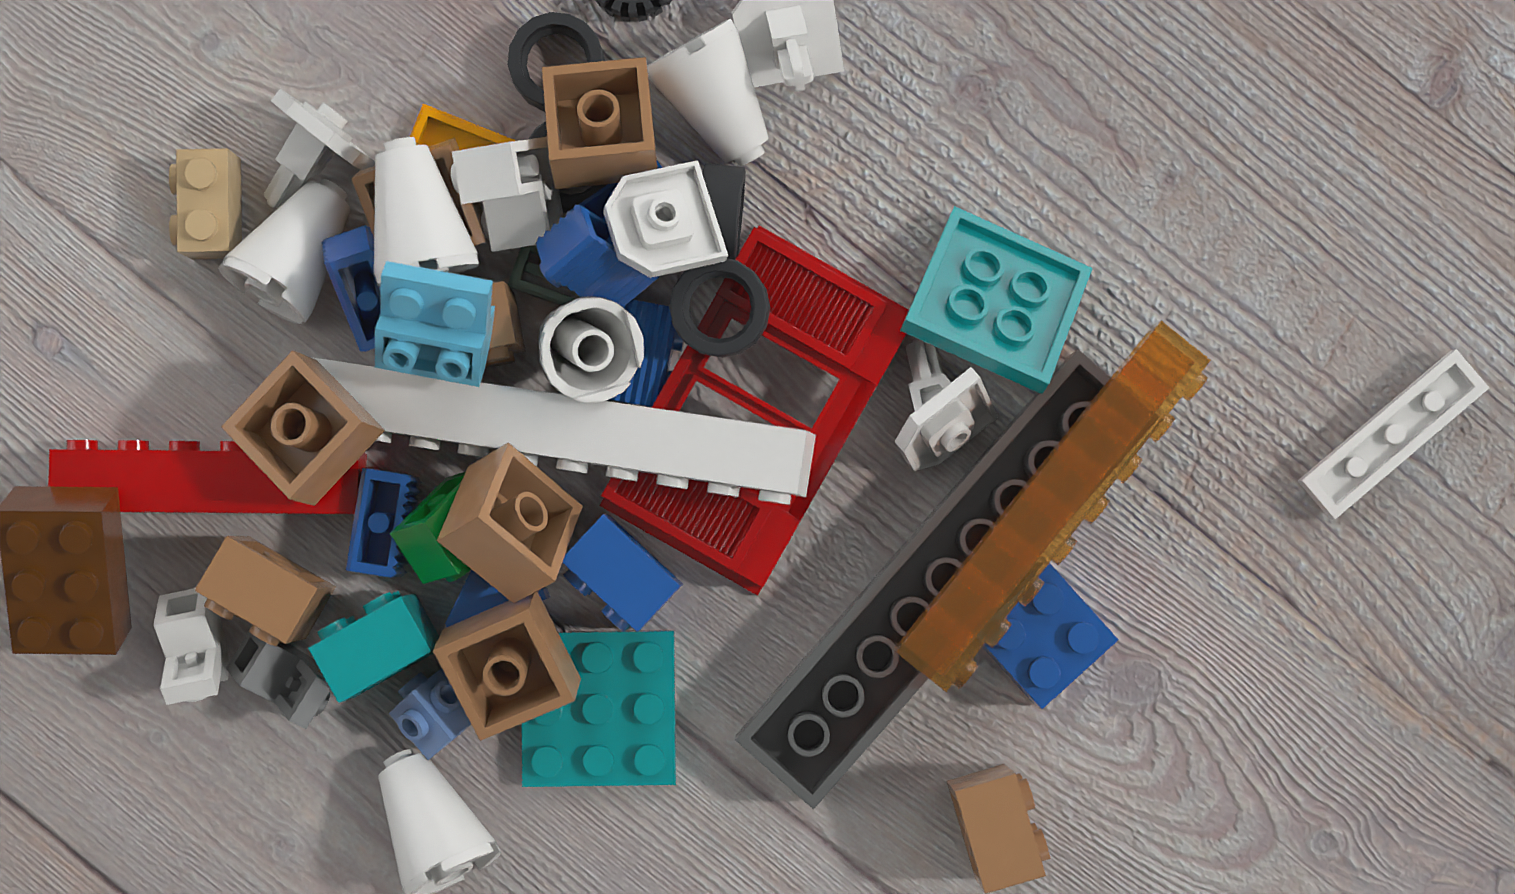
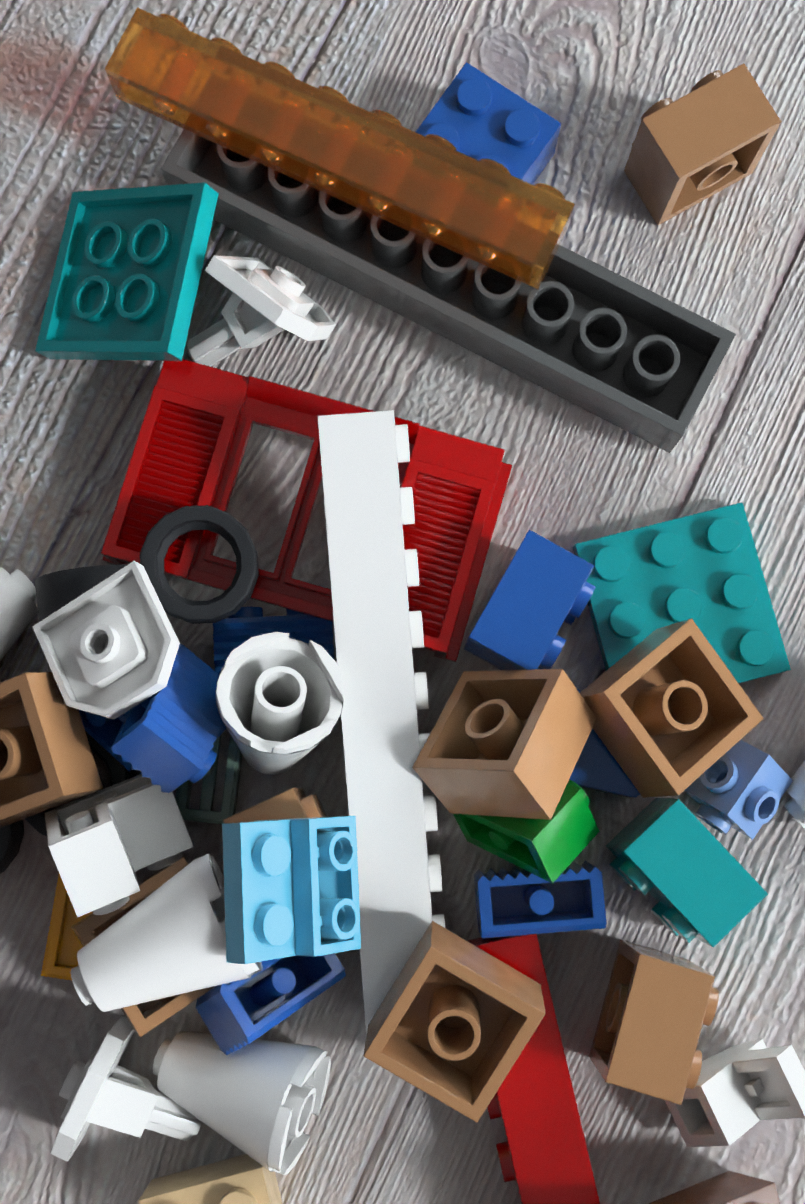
camera: 100 degrees left, 5 degrees down
(281, 676) = (747, 973): dark grey brick -> none

